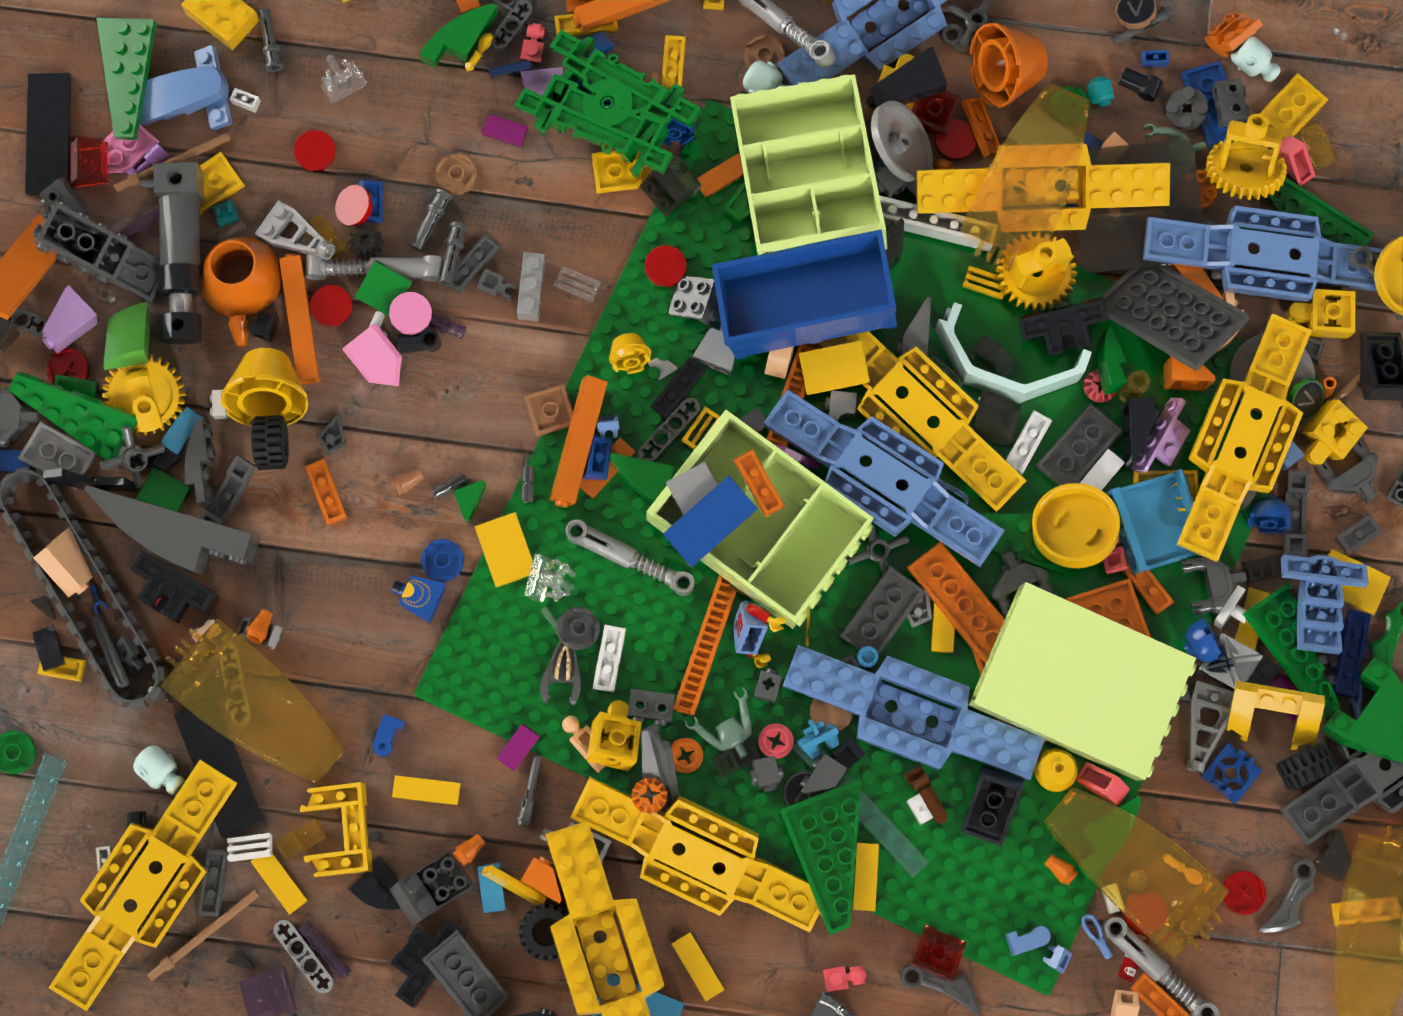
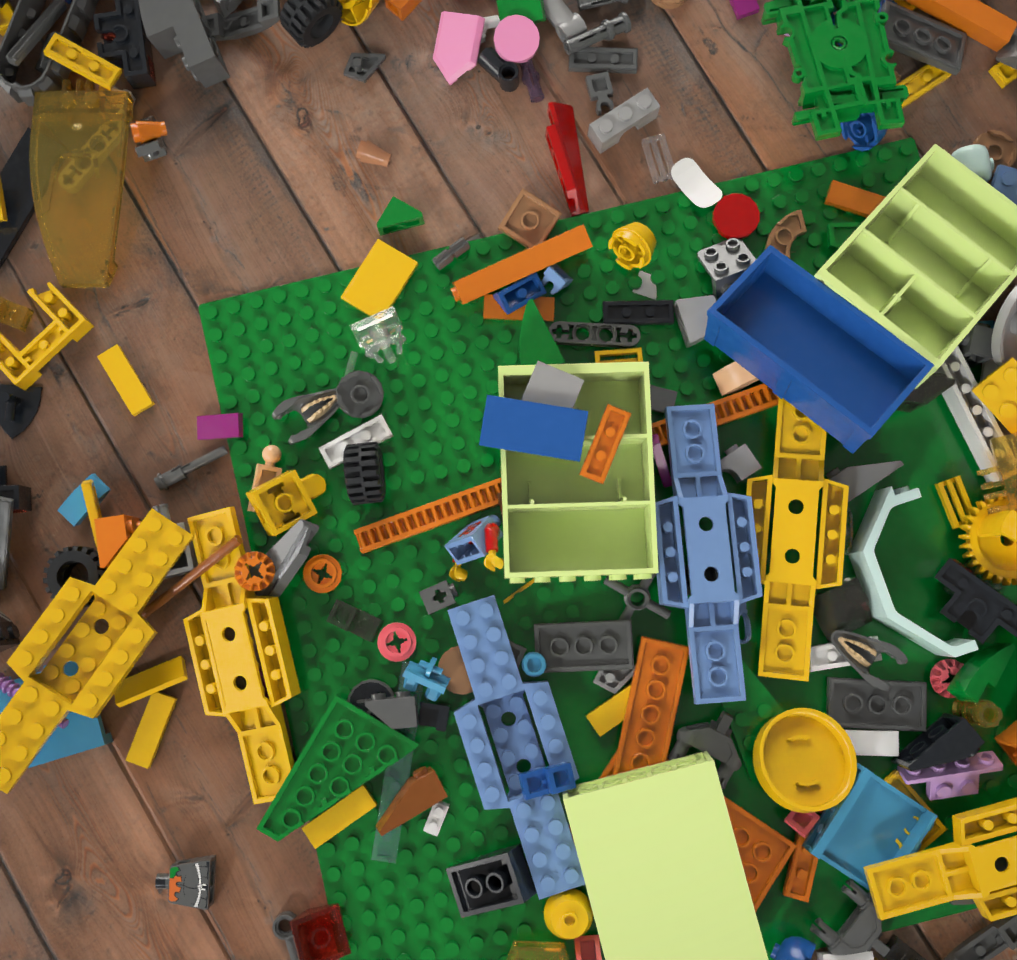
camera: 55 degrees right, 5 degrees up
(169, 632) = (82, 61): none -> yellow tile
(326, 492) = (312, 98): orange tile -> none
(385, 735) = (144, 309): blue leg -> none
(420, 596) = (283, 244): blue torso -> none
(430, 888) = (45, 450): dark grey slope -> none
(442, 560) = (331, 238): blue tile -> none
(453, 484) = (391, 189): dark grey piece -> none
(468, 850) = (100, 455): orange cone -> none
(522, 347) = (566, 156): none -> red wedge
(615, 175) = (777, 113): yellow tile -> none
(615, 842) = (192, 576): none -> dark orange bar
(618, 274) = (695, 183): none -> white sticker
(627, 556) = (455, 385): light grey piece -> none
(640, 666) = (364, 473): none -> black tyre
(644, 35) = (924, 38): none -> dark grey tile
(652, 702) = (338, 510): dark grey brick -> none
(665, 935) = (151, 681): none -> yellow tile
(672, 188) = (811, 163): clear smoke slope -> none
(705, 244) = (786, 232): none -> medium nougat tile
(730, 732) = (373, 597): sand green piece -> none
(766, 774) = (357, 657): dark grey brick -> none
(834, 367) = (768, 429): yellow tile -> none
(837, 979) = (233, 860): coral plate -> none
(893, 811) = (414, 797): none -> dark orange slope
(918, 781) = (460, 798): reddish brown piece -> none
(953, 708) = (547, 780): none -> blue slope
(993, 356) = (895, 561): clear smoke slope -> none
(1035, 427) = (862, 651): none -> dark grey animal
(1270, 515) = (961, 930): blue cylinder -> none

